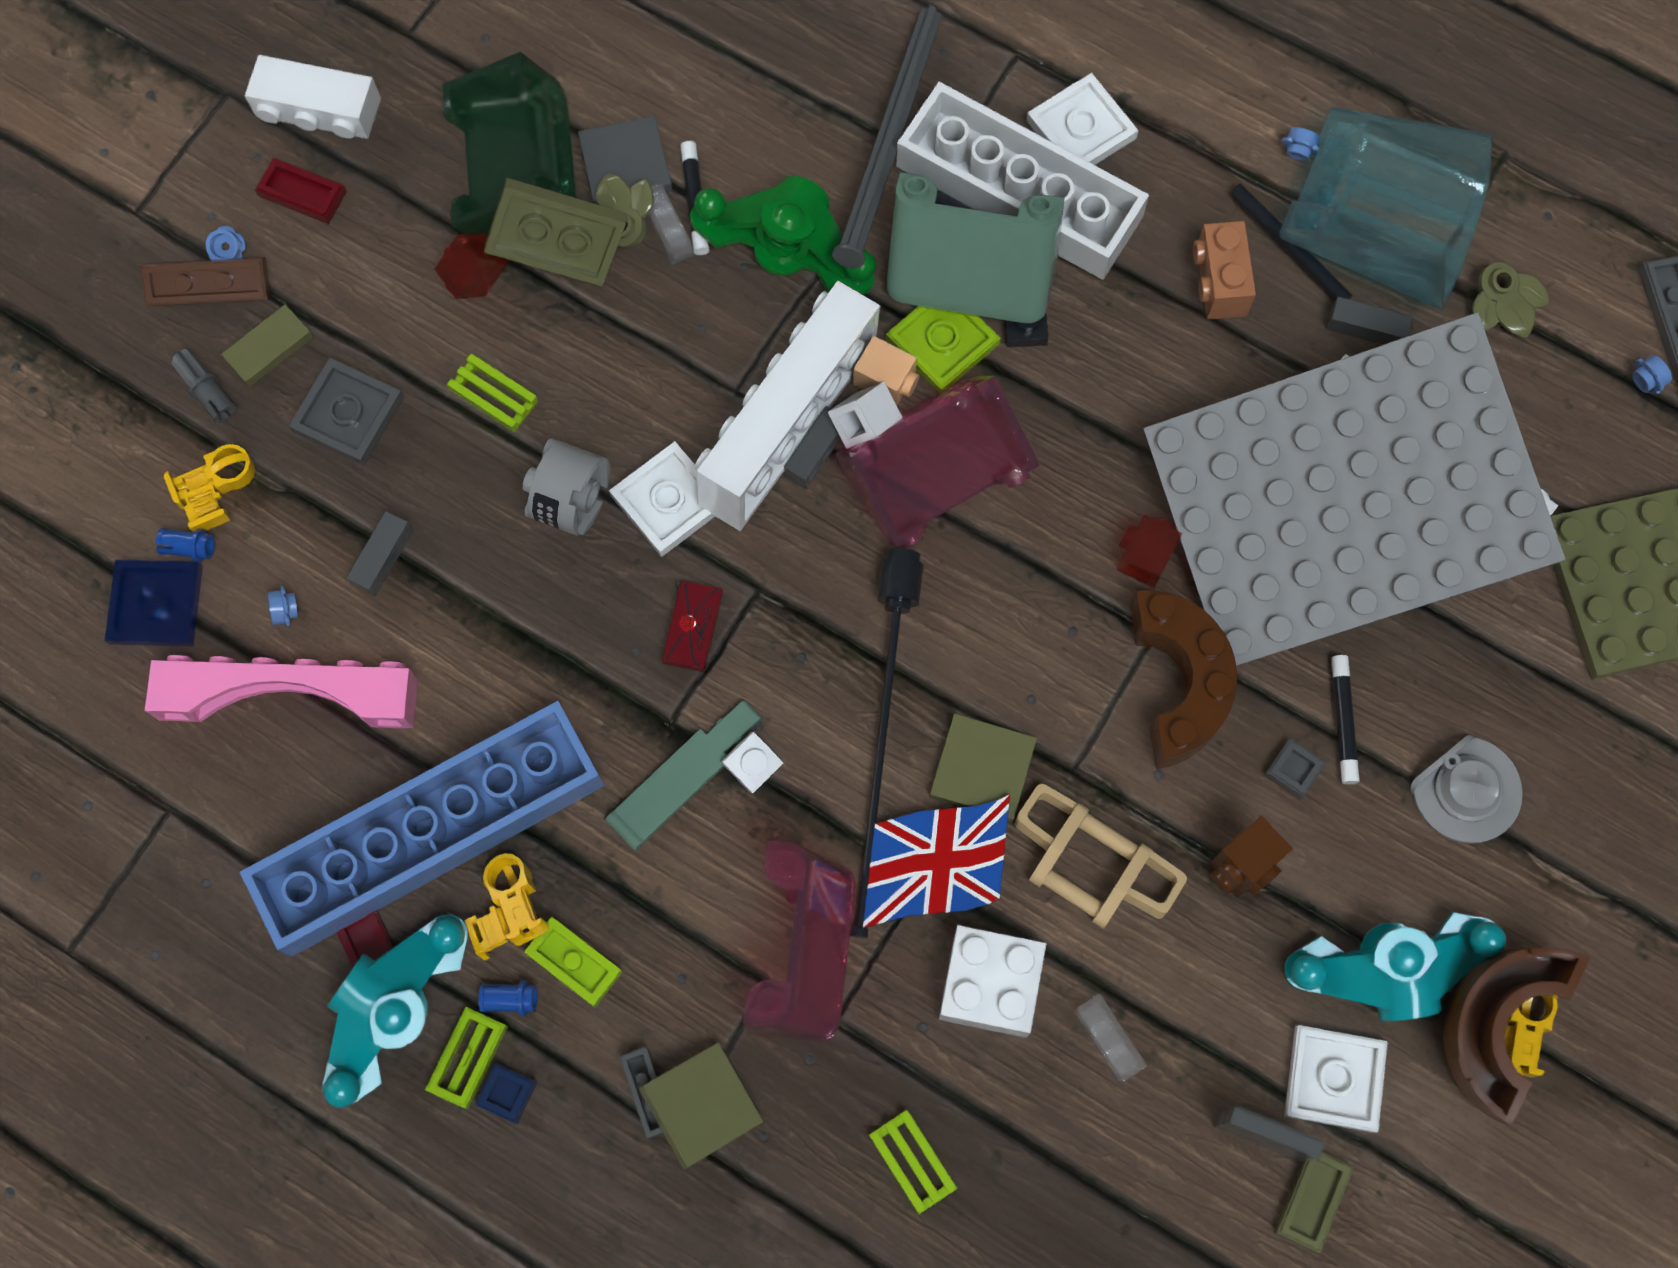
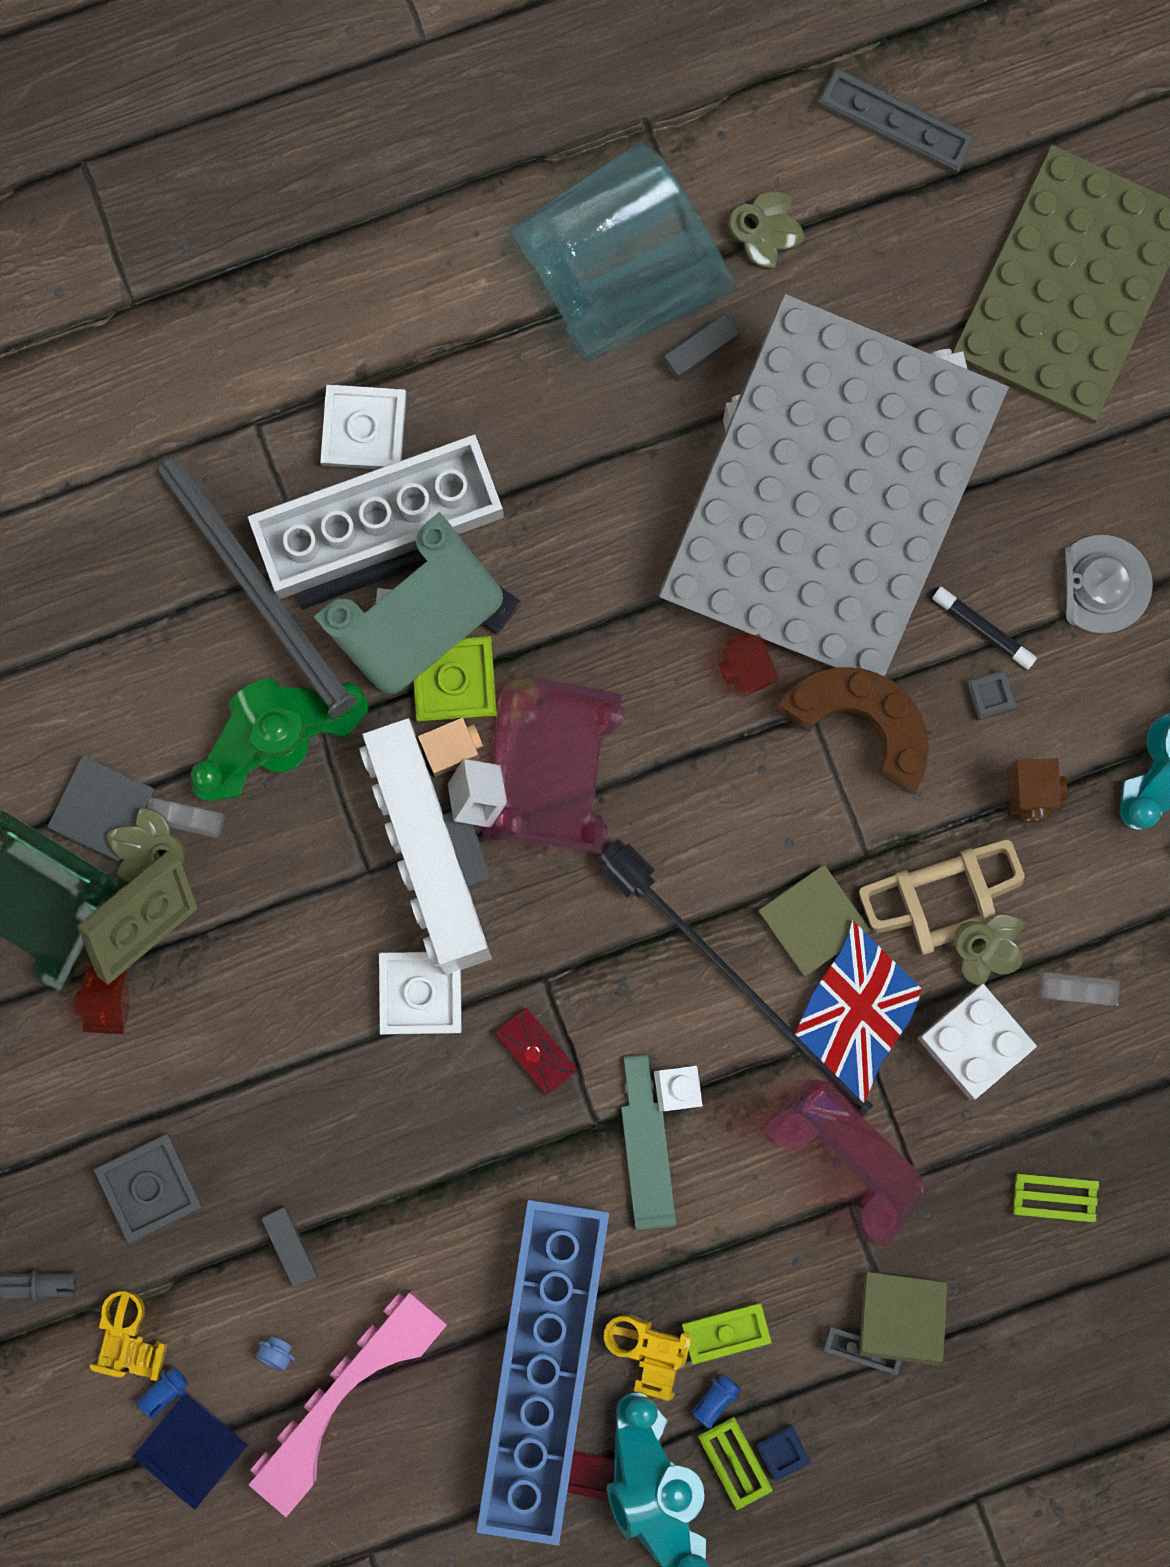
camera: 50 degrees left, 10 degrees up
(267, 345) = (38, 1210): olive tile -> none
(466, 374) = (188, 1072): lime tile -> none
(566, 487) = (356, 1065): light grey brick -> none
(693, 187) = (170, 773): bar -> none
(1082, 936) = (994, 947): none -> olive plate
(1225, 270) = (574, 422): nougat brick -> none
(1299, 254) = (569, 351): black bar -> none
(1301, 143) = (516, 272): medium blue plate -> none
(1651, 374) = (908, 176): medium blue plate -> none

